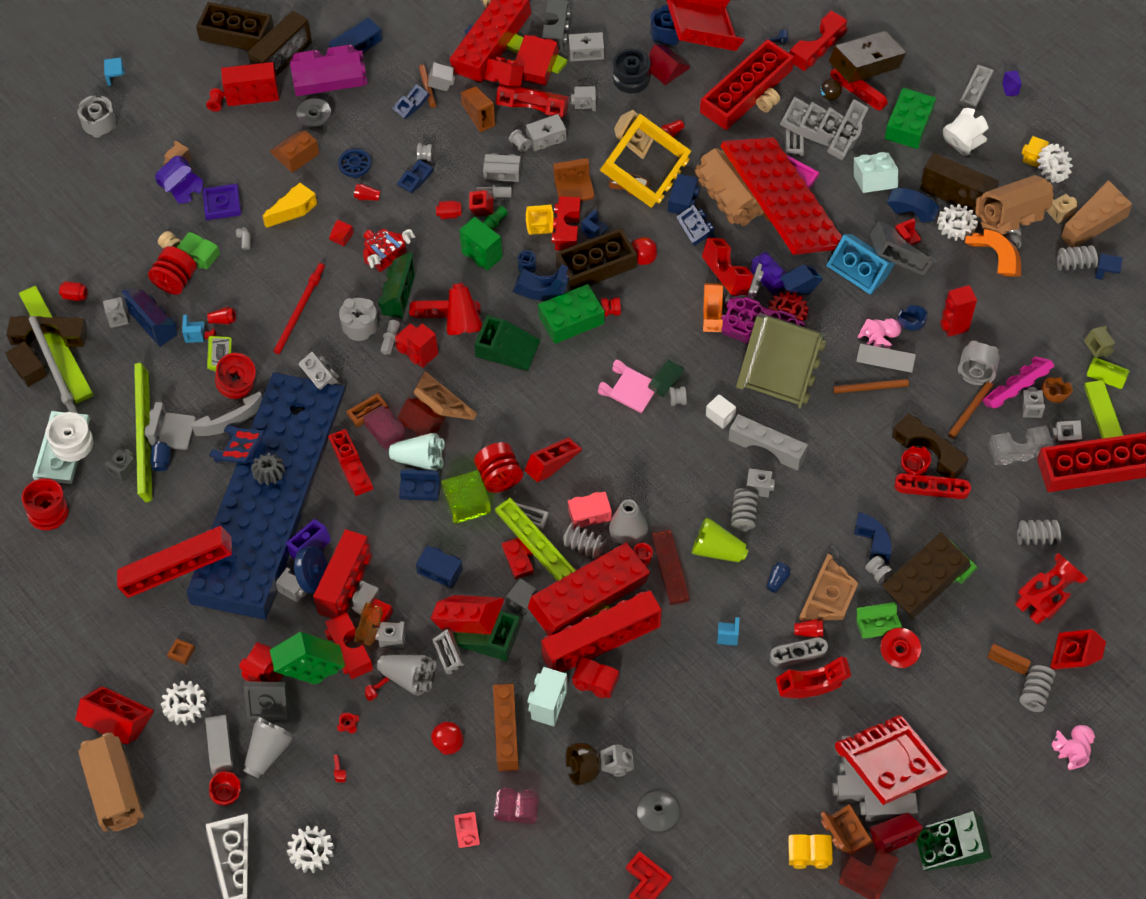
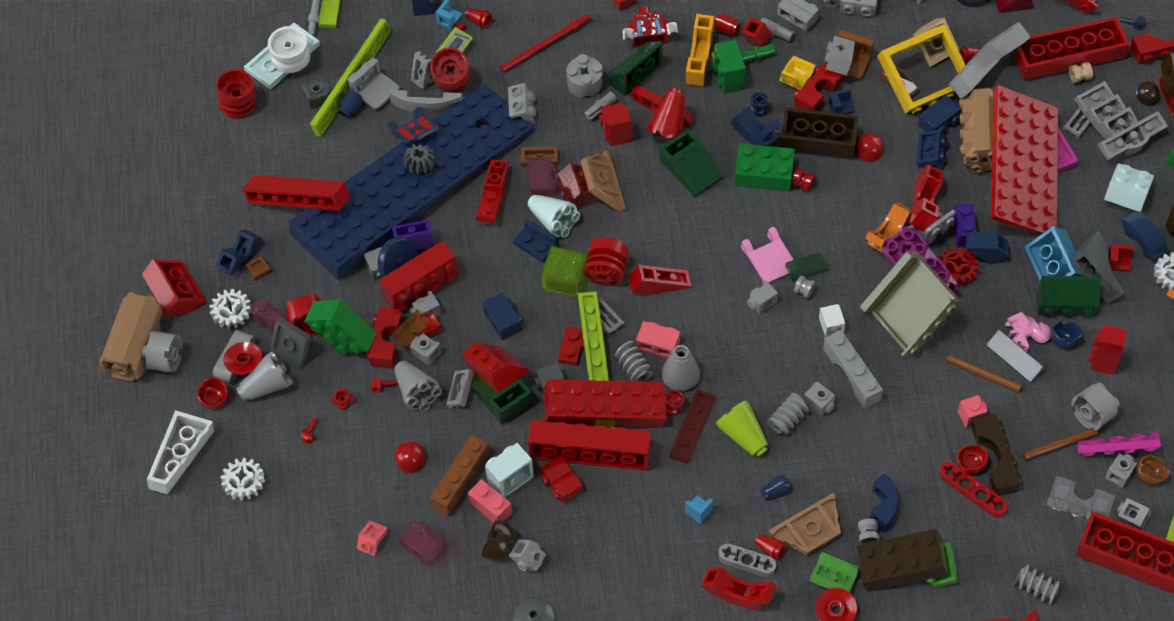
camera: 35 degrees right, 0 degrees up
(149, 779) = (162, 351): none -> light grey brick
(154, 649) = (235, 258): none -> dark blue brick
(207, 380) = (423, 72): none -> light grey tile
(224, 689) = (265, 314): none -> clear pink brick
(228, 734) = (241, 352): none -> red dish
(438, 235) = (700, 50): none -> light orange arch
(549, 734) = (489, 502): none -> coral brick
(568, 185) = (839, 55): none -> light grey brick
(650, 424) = (762, 297): none -> light grey brick
(689, 124) = (987, 58): none -> light grey beam
(886, 421) = (970, 409): none -> coral brick
(893, 286) = (1068, 296): none -> dark green slope

